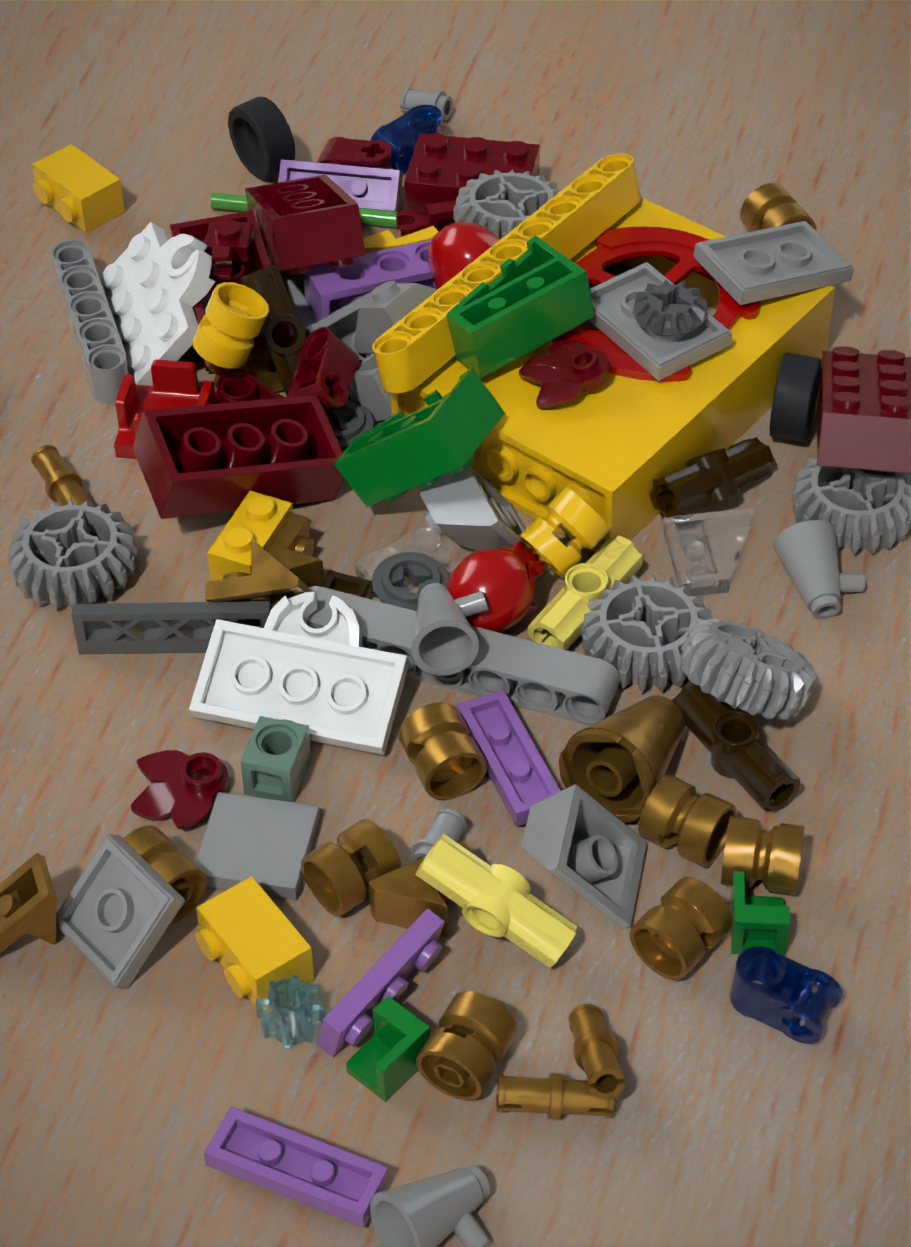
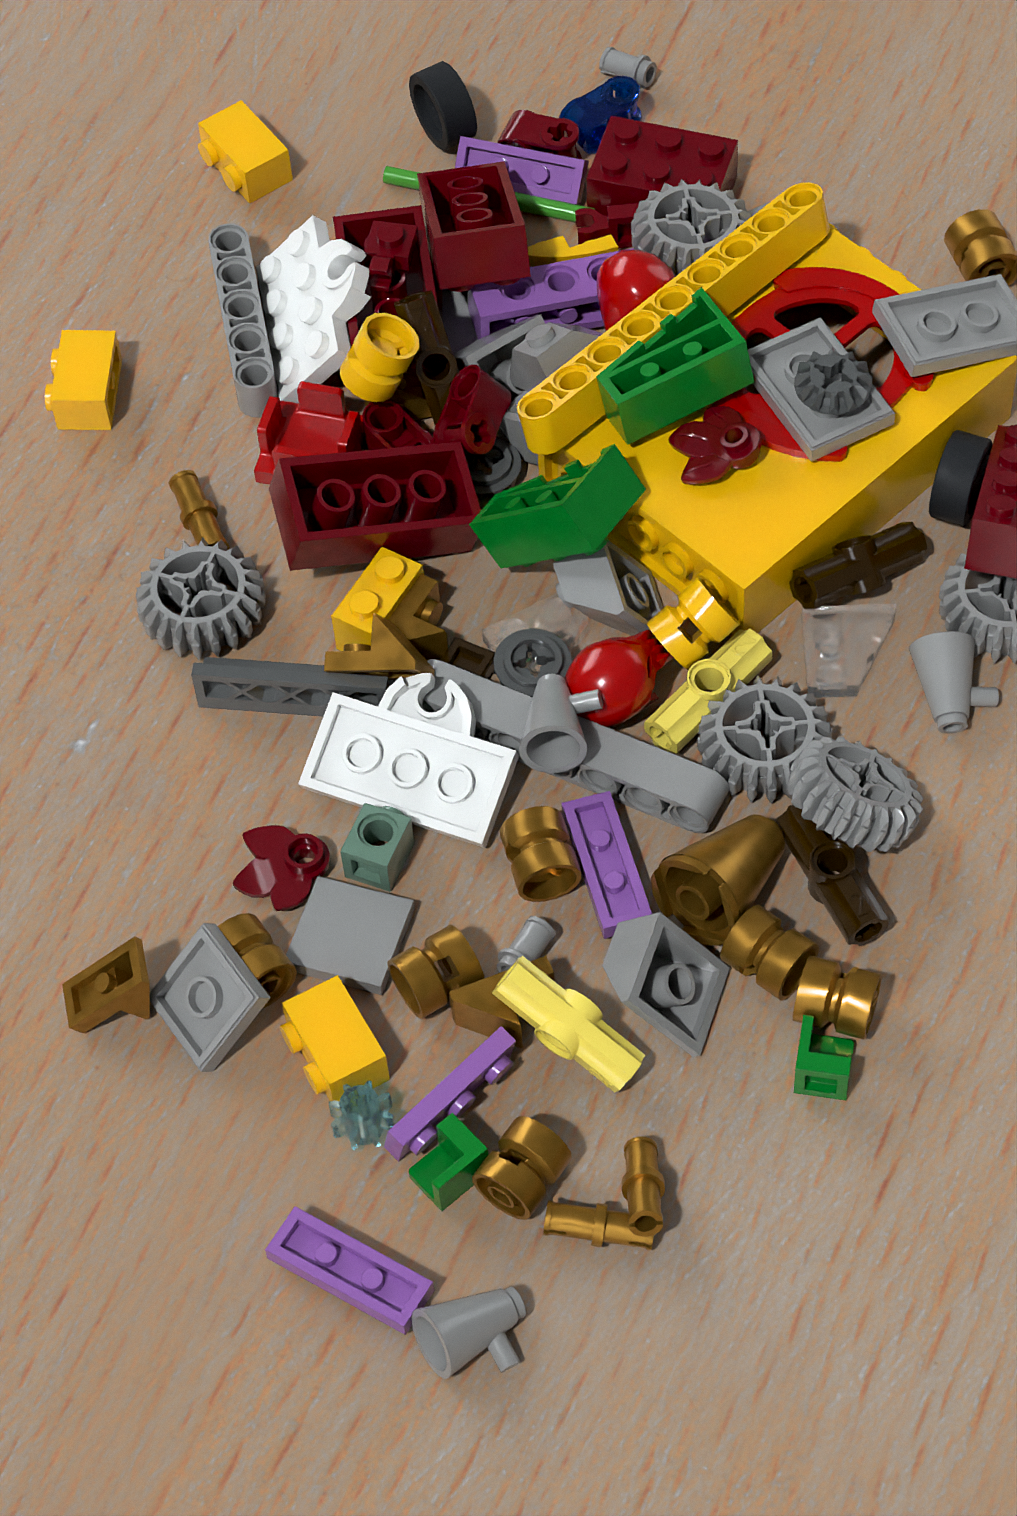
camera: 10 degrees right, 10 degrees up
(681, 930) = (751, 1062): pearl gold wheel -> none
(785, 993) = (843, 1150): clear blue piece -> none

